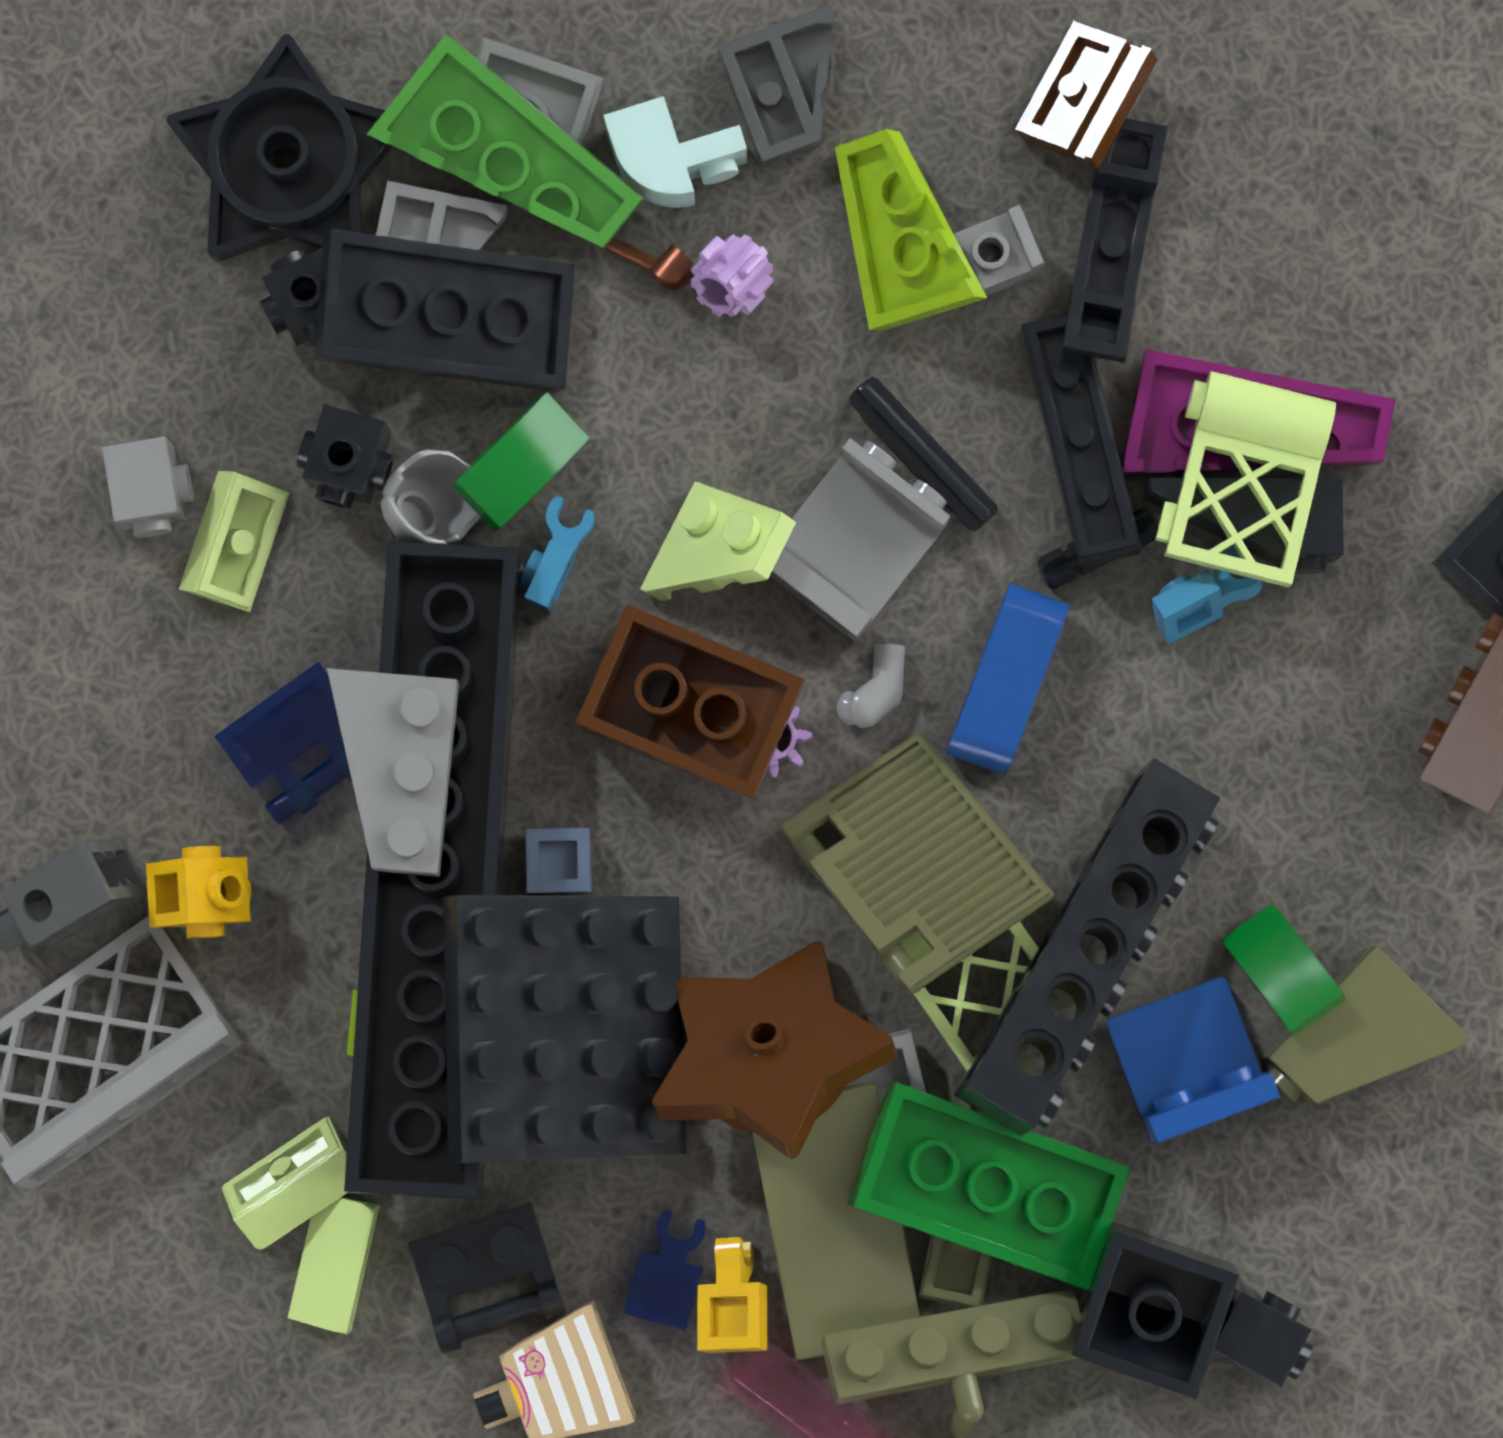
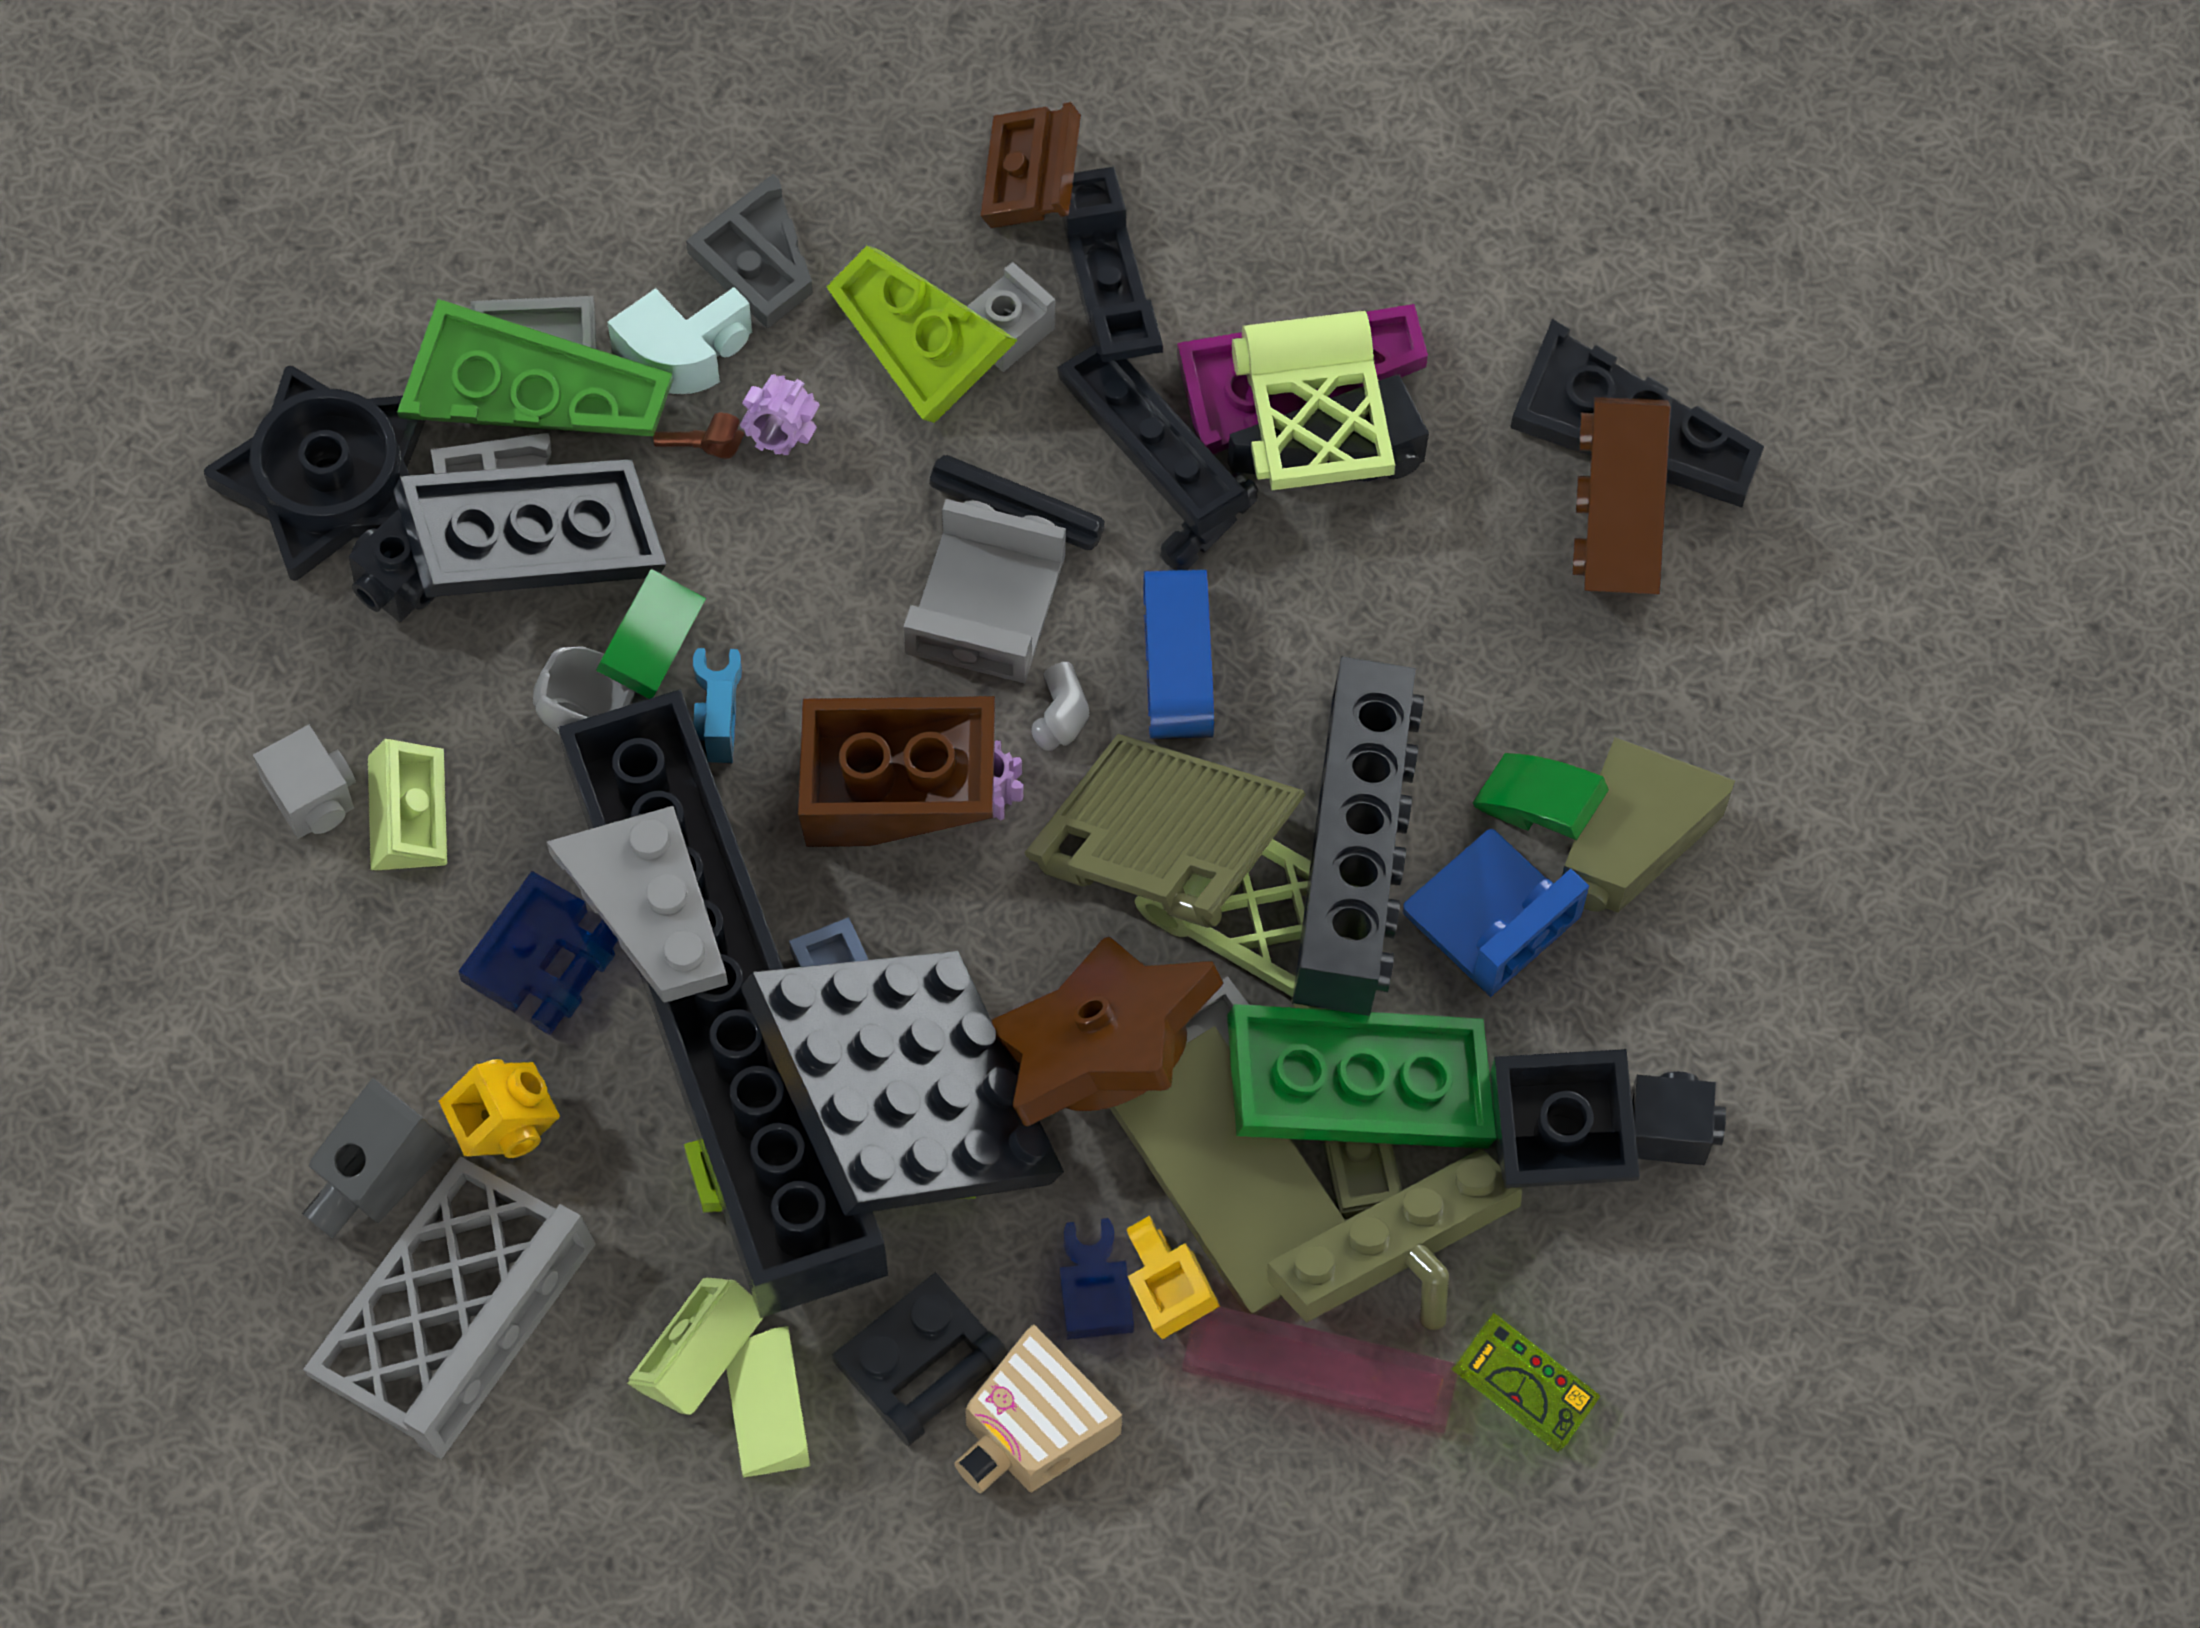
camera: 25 degrees left, 20 degrees down
(339, 435) = (486, 686): black brick -> none
(717, 543) = (864, 629): yellowish green wing -> none
(1199, 600) = (1317, 525): dark azure plate -> none

